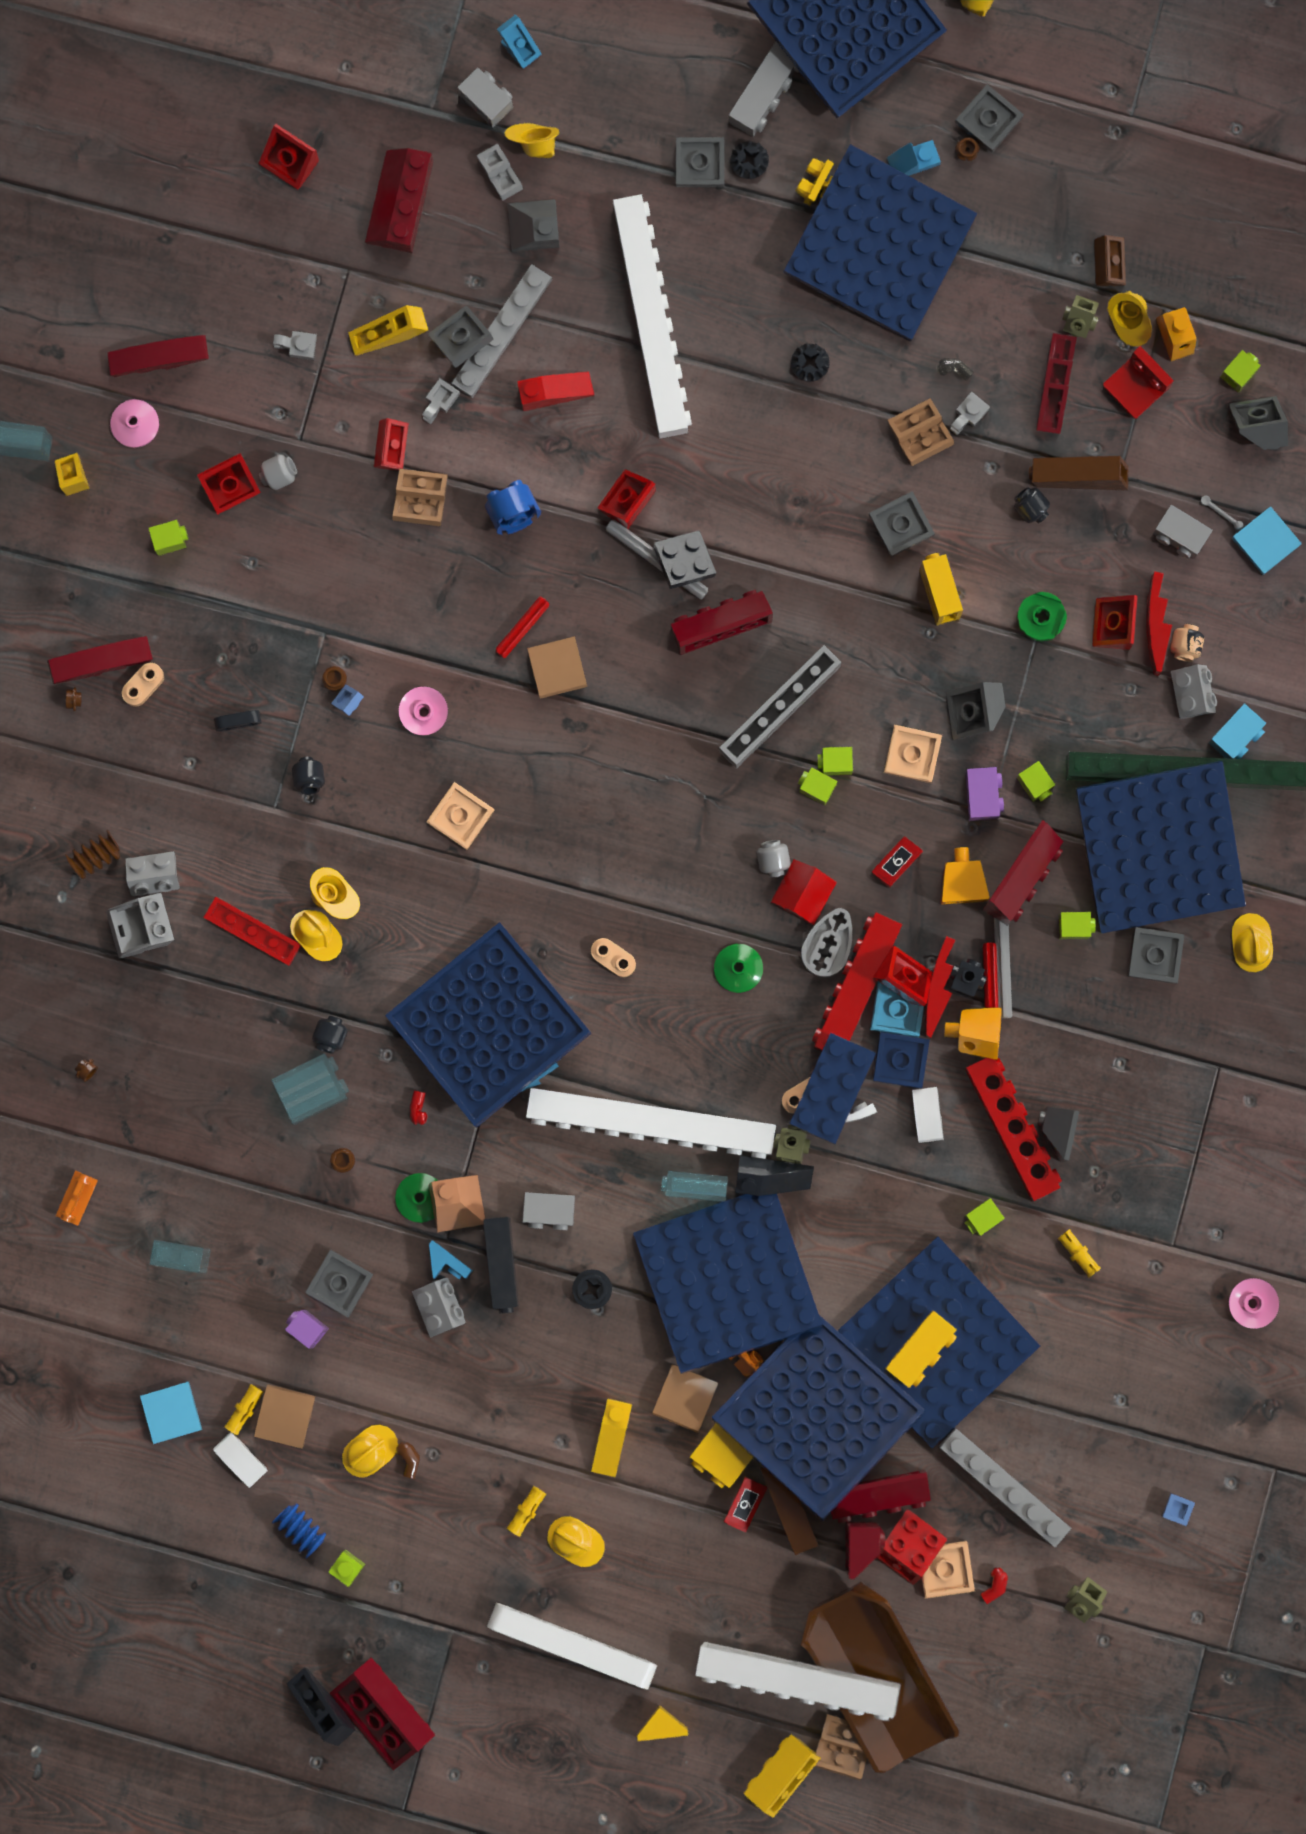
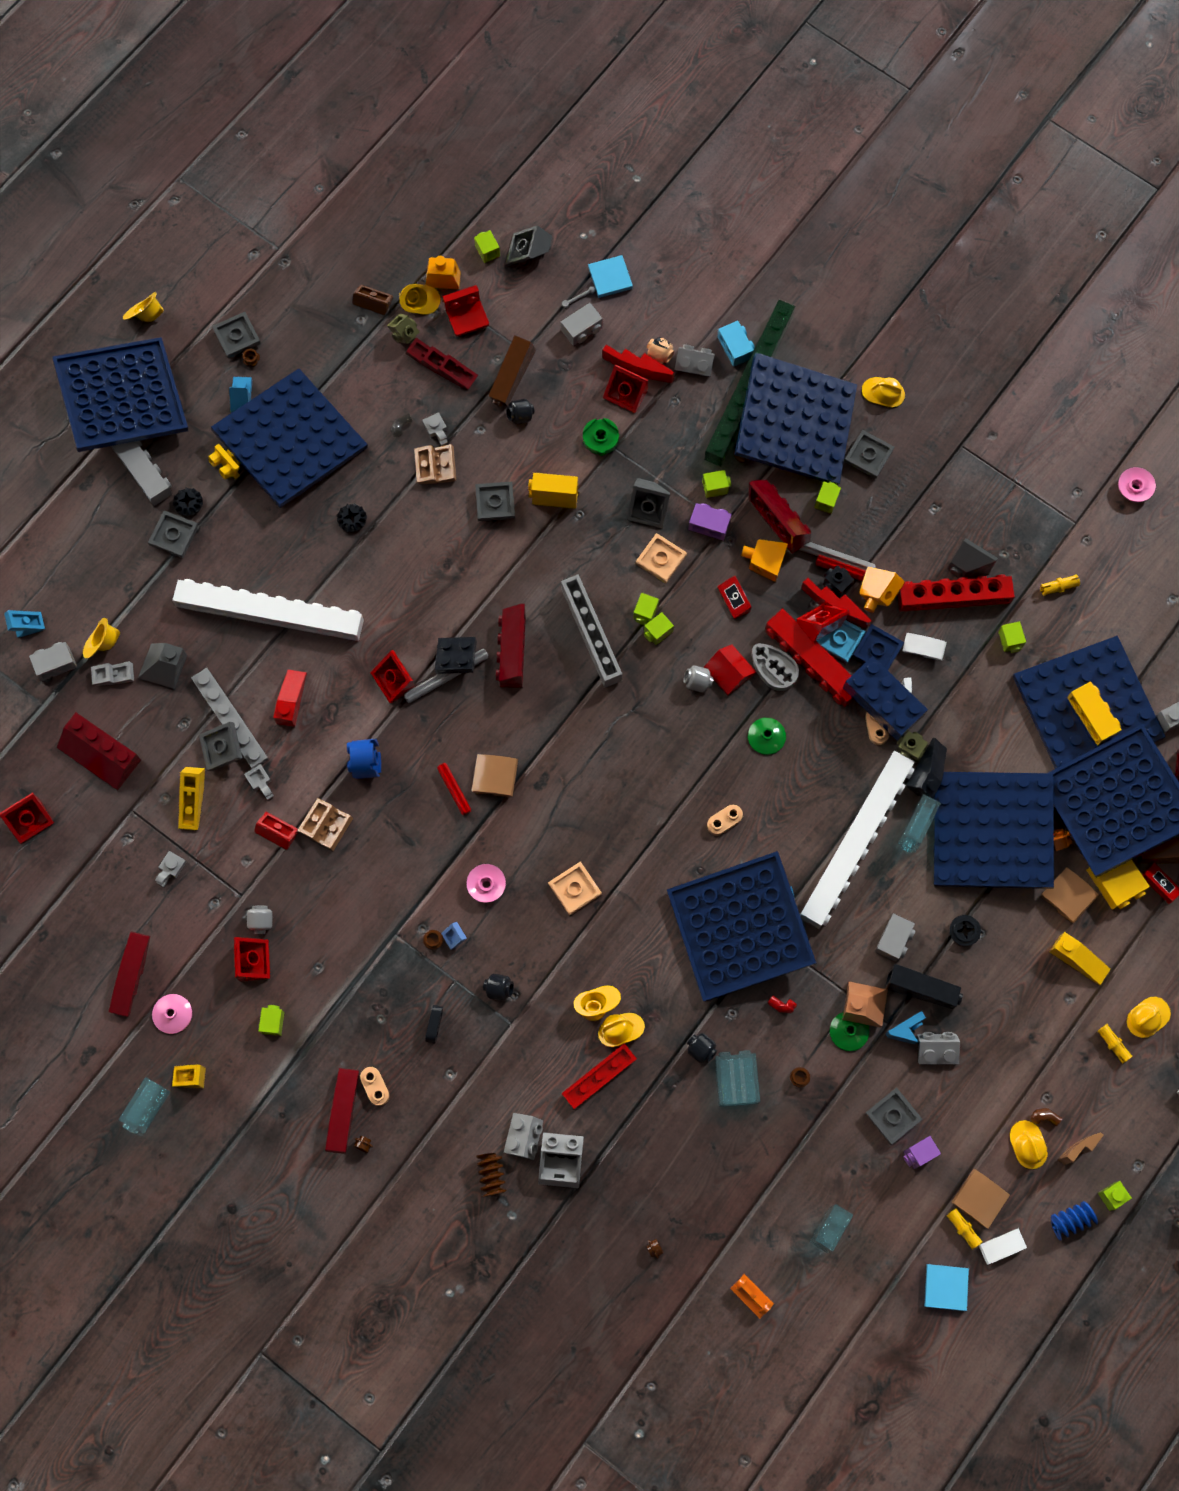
camera: 75 degrees left, 10 degrees down
(390, 1513) = (1083, 1146): none -> medium nougat slope

